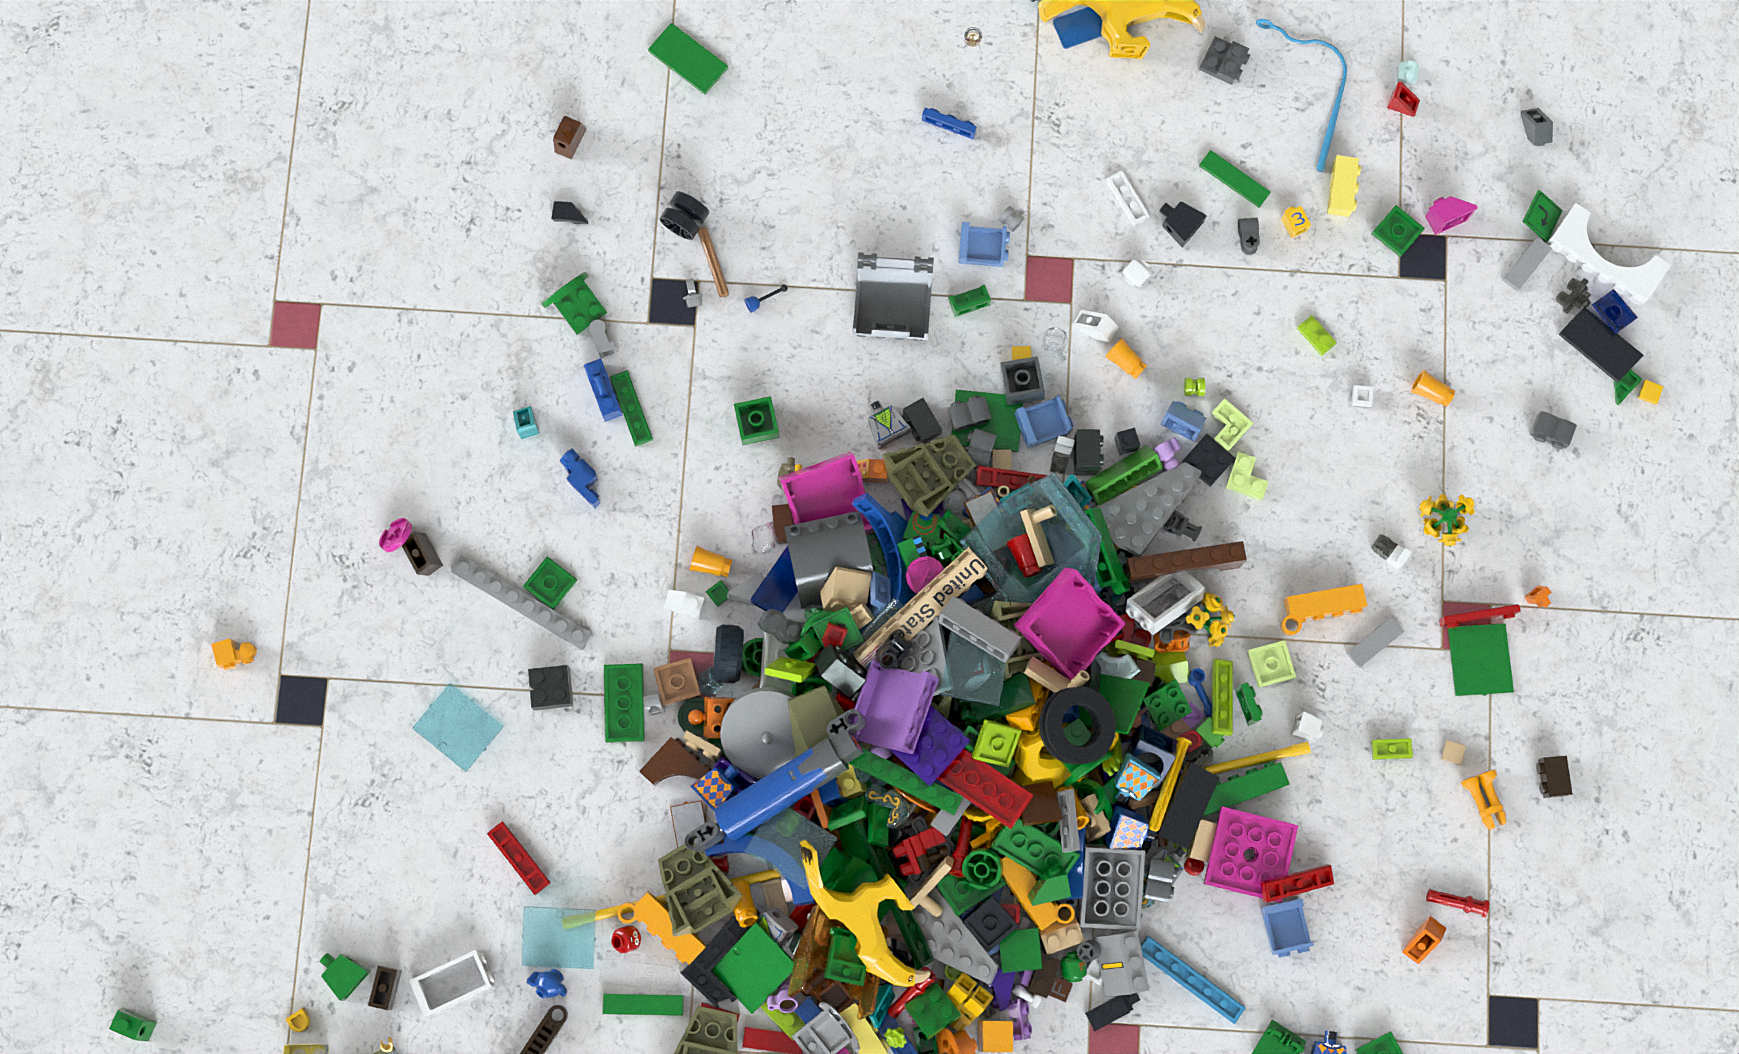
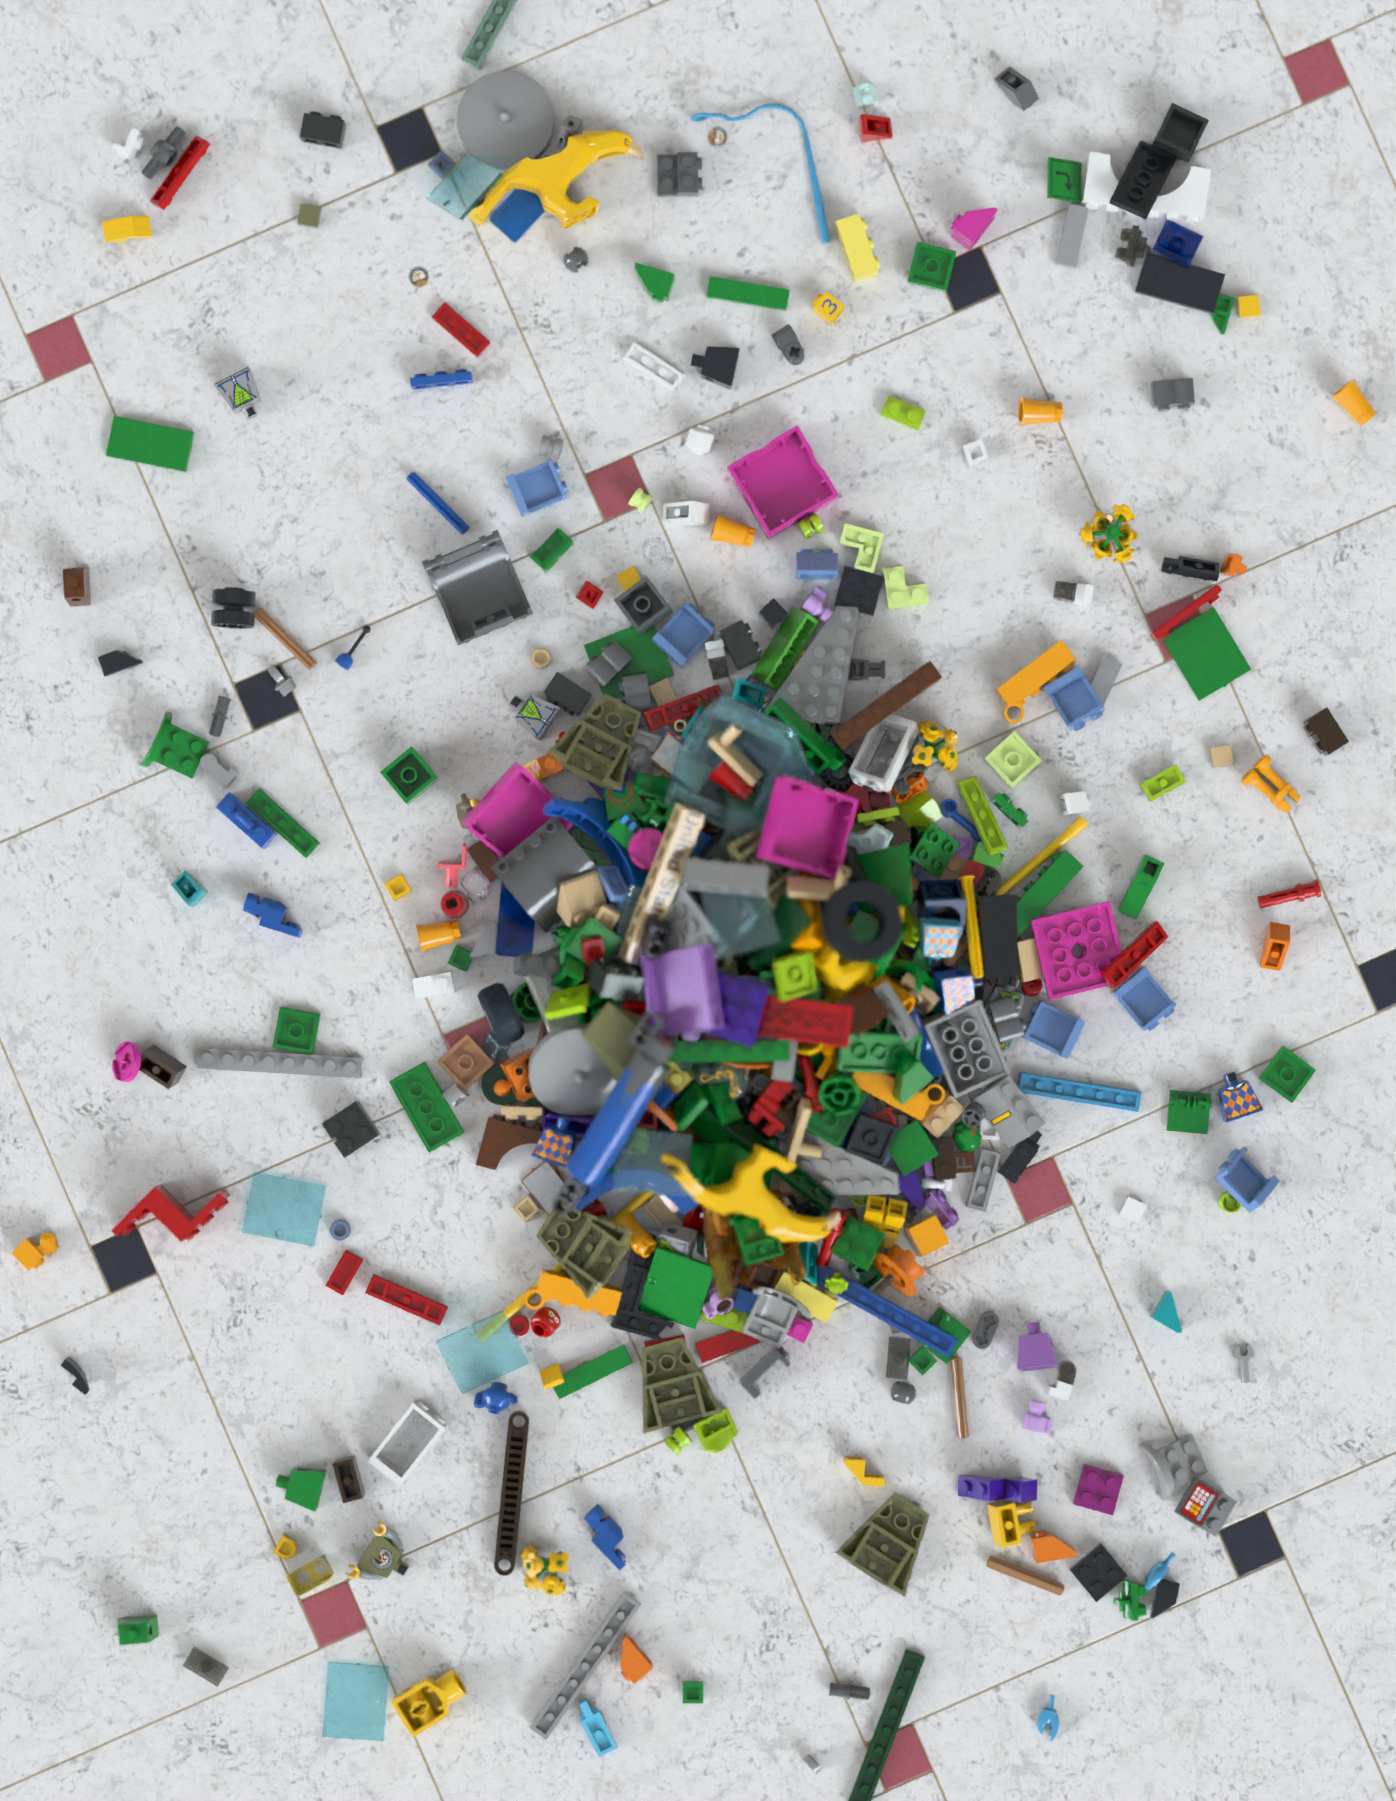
camera: 25 degrees left, 10 degrees up
(207, 783) = (81, 1381): none -> black slope
(361, 679) = (171, 1213): none -> red bracket
(479, 807) = (344, 1272): none -> red tile
(495, 769) = (340, 1229): none -> sand blue tile
(603, 931) = (520, 1325): none -> red tile
(606, 990) = (552, 1376): none -> yellow tile
(626, 296) = (219, 716): none -> dark grey axle
(662, 833) = (526, 1208): none -> tan tile
(698, 508) = (398, 887): none -> yellow tile
(736, 551) = (462, 904): none -> red plant
(751, 515) = (453, 867): none -> coral bracket
(782, 53) = (240, 392): none -> torso
(895, 217) = (437, 502): none -> blue axle
(915, 382) = (541, 658): none -> tan tile
(981, 351) = (589, 594): none -> red tile
(985, 93) = (461, 330): none -> red tile
(1063, 296) = (640, 500): none -> yellowish green wheel
(1069, 1013) = (983, 1179): none -> light grey tile
(1107, 83) = (575, 259): none -> dark grey piece
(1163, 132) = (655, 282): none -> green slope
(1188, 340) = (782, 482): none -> dark pink tile
(1194, 912) = (1053, 1029): none -> medium blue panel
(1270, 47) = (717, 137): none -> clear tile
(1331, 827) = (1140, 886): none -> green slope
(1349, 639) = (1075, 699): none -> medium blue panel
(1501, 580) = (1191, 568): none -> black hinge
(1609, 246) = (1143, 179): none -> black tile
(1658, 224) = (1179, 132): none -> pearl dark grey piece
(1706, 513) = (1354, 402): none -> light orange plant

